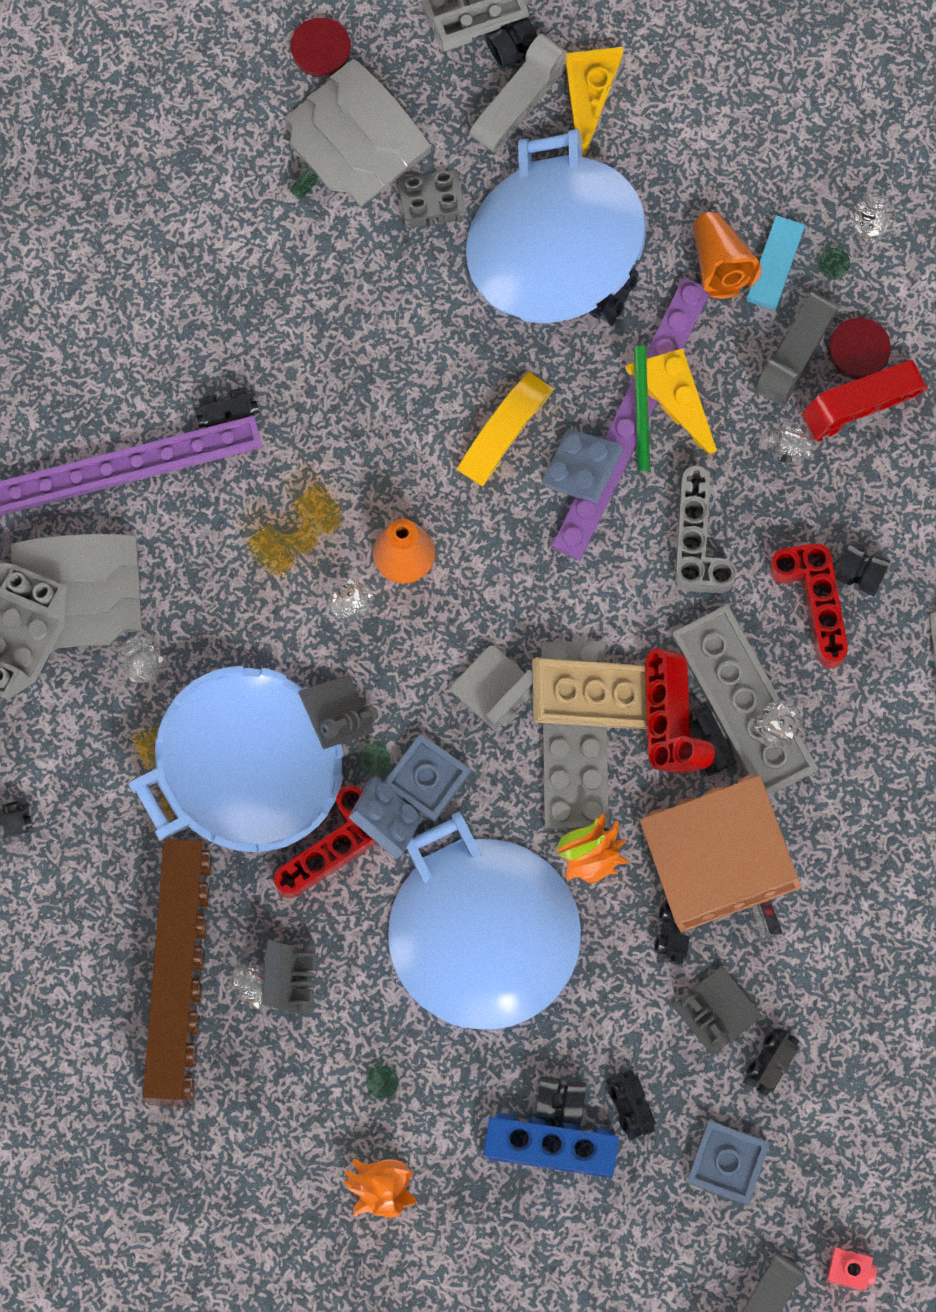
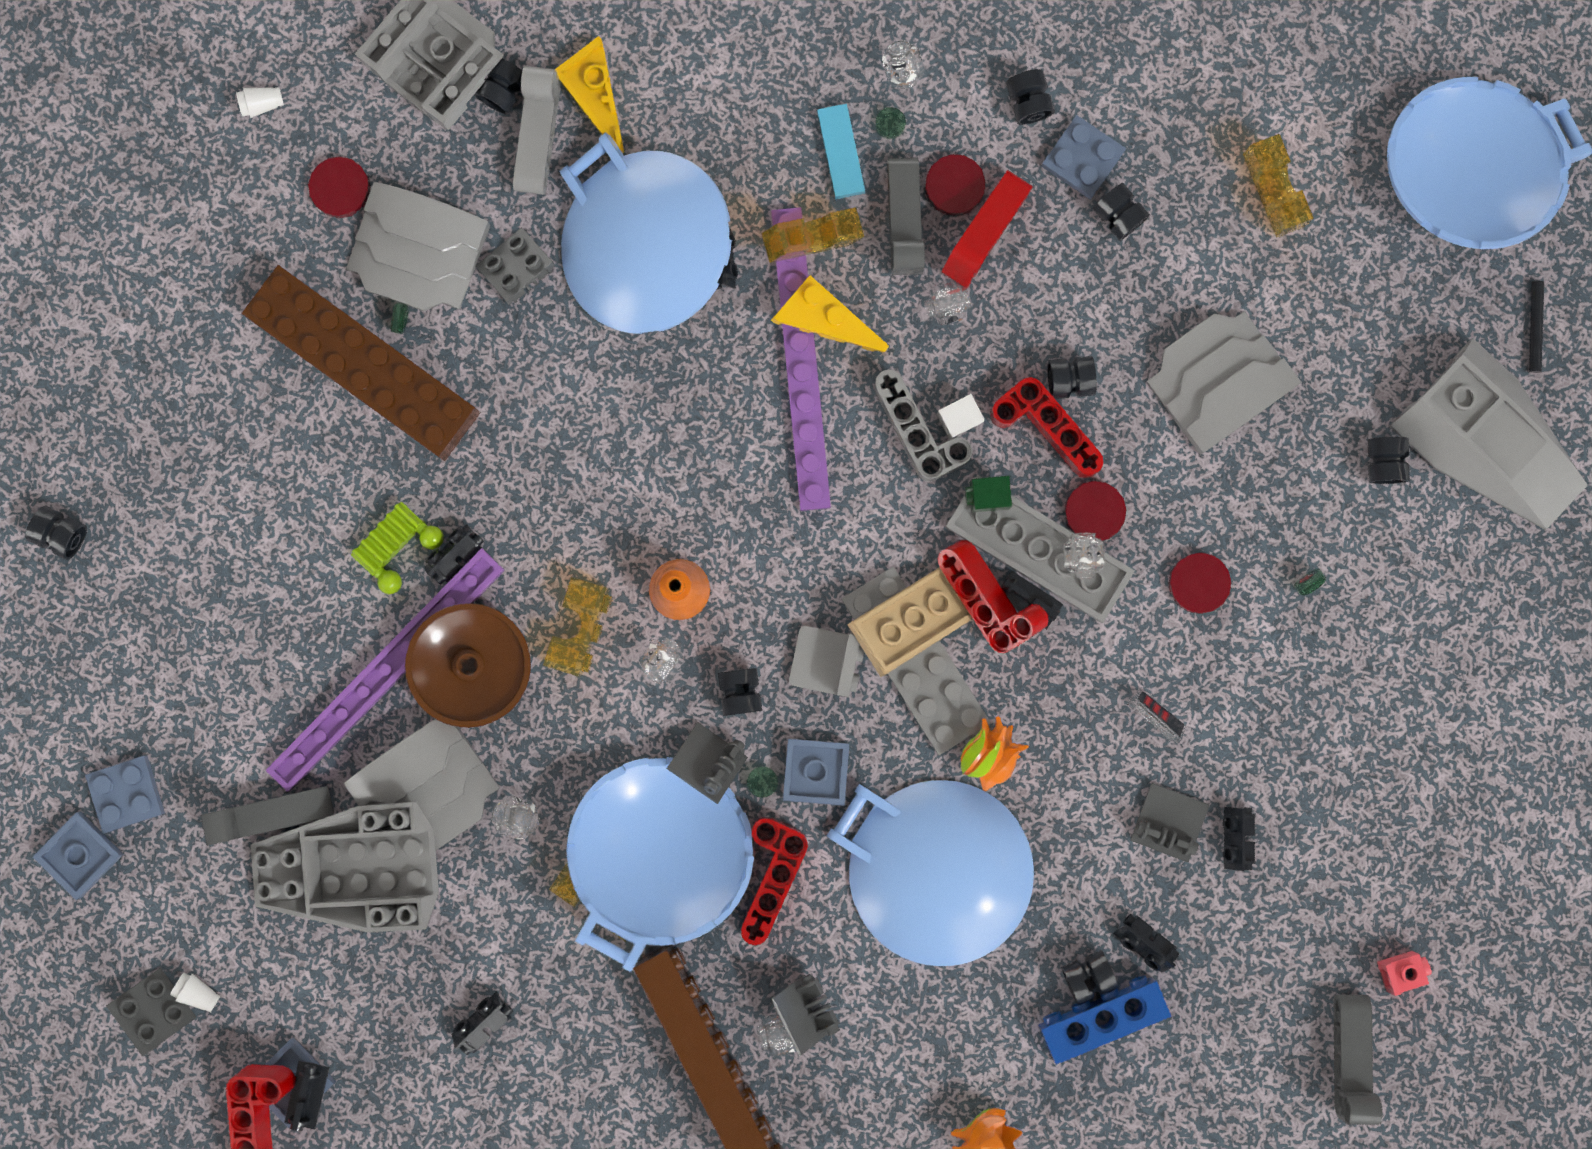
camera: 30 degrees left, 10 degrees up
(177, 364) = (389, 539): none -> lime gear
(180, 505) = (467, 665): none -> reddish brown dish
(248, 202) = (361, 362): none -> reddish brown brick
(382, 1082) = (932, 1048): clear green tile -> none
(385, 817) = (804, 831): sand blue plate -> none
(398, 678) = (743, 702): none -> black wheel
(504, 428) = (699, 431): yellow slope -> none
(582, 465) = (785, 426): sand blue plate -> none
(641, 398) = (806, 347): green bar -> none
(669, 942) = (1088, 766): black hinge -> none
(688, 310) = (803, 238): none -> clear yellow arch
(720, 853) = (1099, 693): nougat panel -> none
(723, 257) = (795, 173): orange cone -> none
(726, 623) = (989, 494): none -> dark green brick
(728, 1163) = (1254, 944): sand blue plate -> none
(742, 544) = (960, 417): none -> white panel
(818, 697) = (1095, 509): none -> dark red tile
(871, 816) = (1199, 583): none -> dark red tile

